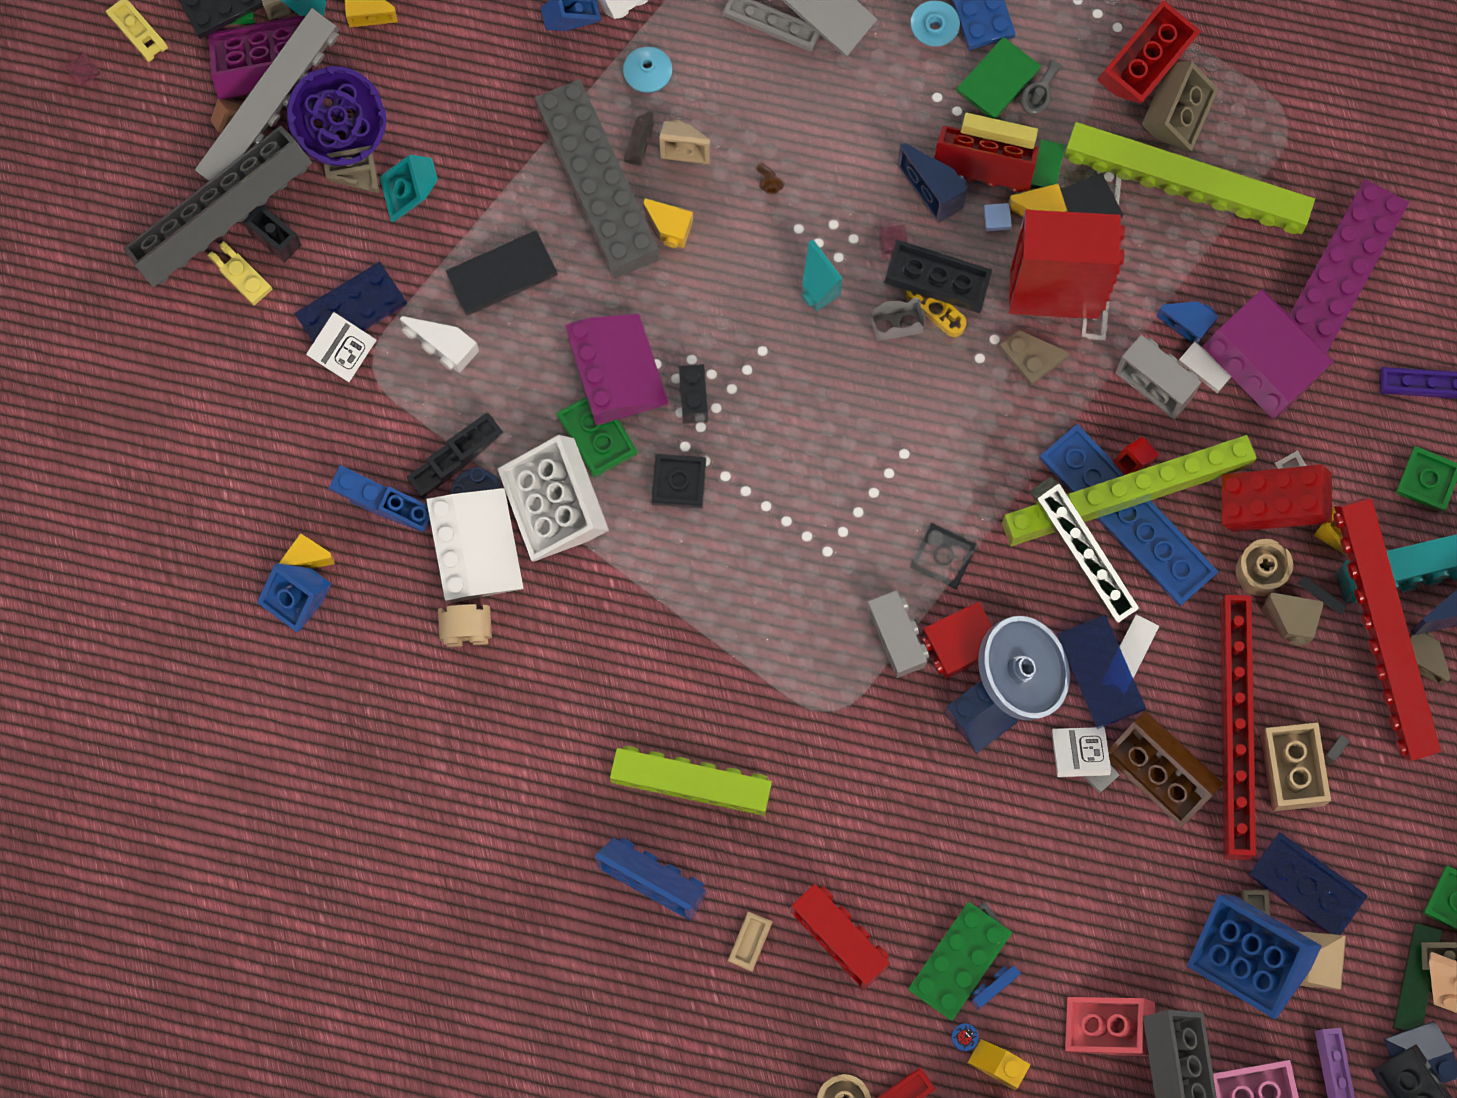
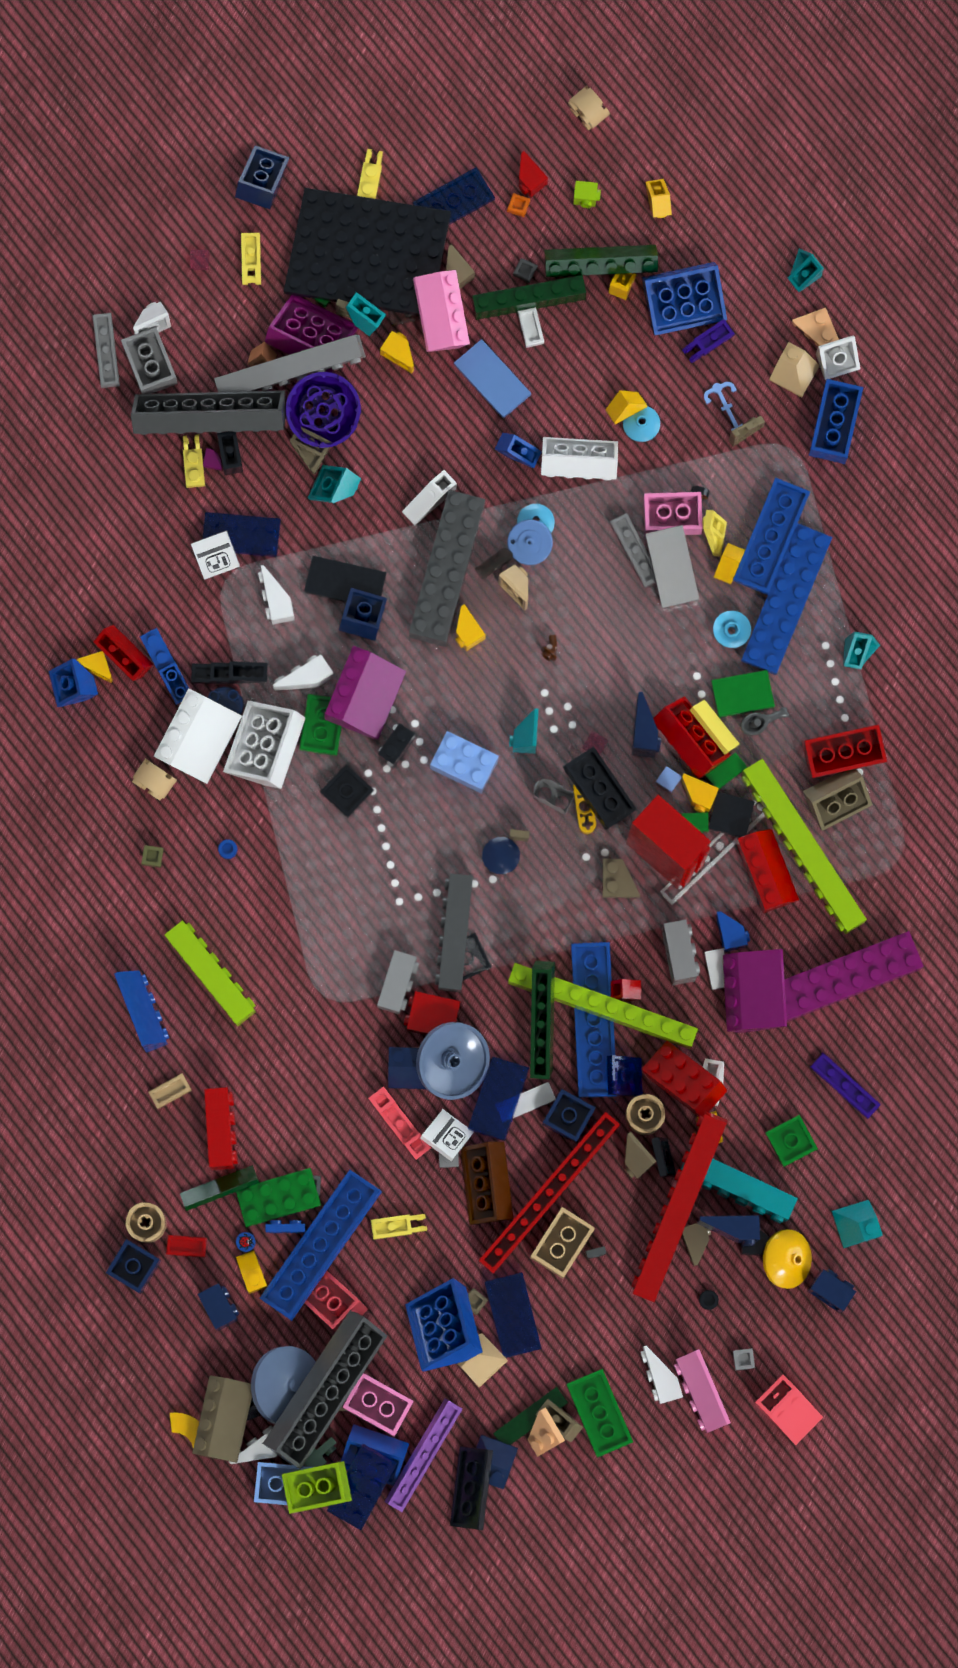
camera: 35 degrees right, 5 degrees up
(54, 231) = (106, 350): none -> light grey tile
(81, 163) = (152, 316): none -> white slope
(110, 205) = (149, 361): none -> light grey brick
(259, 257) = (212, 460): none -> magenta tile
(324, 520) = (123, 653): none -> red brick
(519, 124) = (430, 497): none -> white slope
(528, 706) = (152, 856): none -> olive tile
(543, 392) = (310, 675): none -> white slope
(547, 288) = (362, 614): none -> dark blue slope
(601, 638) = (227, 849): none -> blue tile
(660, 89) = (530, 542): none -> medium blue wheel
(777, 356) = (464, 762): none -> light blue brick
(889, 1002) = (219, 1188): none -> dark green tile
(893, 422) = (501, 855): none -> dark blue dish
(895, 387) = (519, 835): none -> dark tan tile
(914, 536) = (455, 932): none -> dark grey brick
(1021, 780) = (399, 1123): none -> coral slope
(1048, 975) = (320, 1245): none -> blue plate
(1108, 891) = (396, 1226): none -> light yellow hinge
(1172, 231) = (767, 870): none -> red slope
(1189, 631) = (568, 1116): none -> dark blue brick
(1209, 545) = (624, 1076): none -> clear blue plate

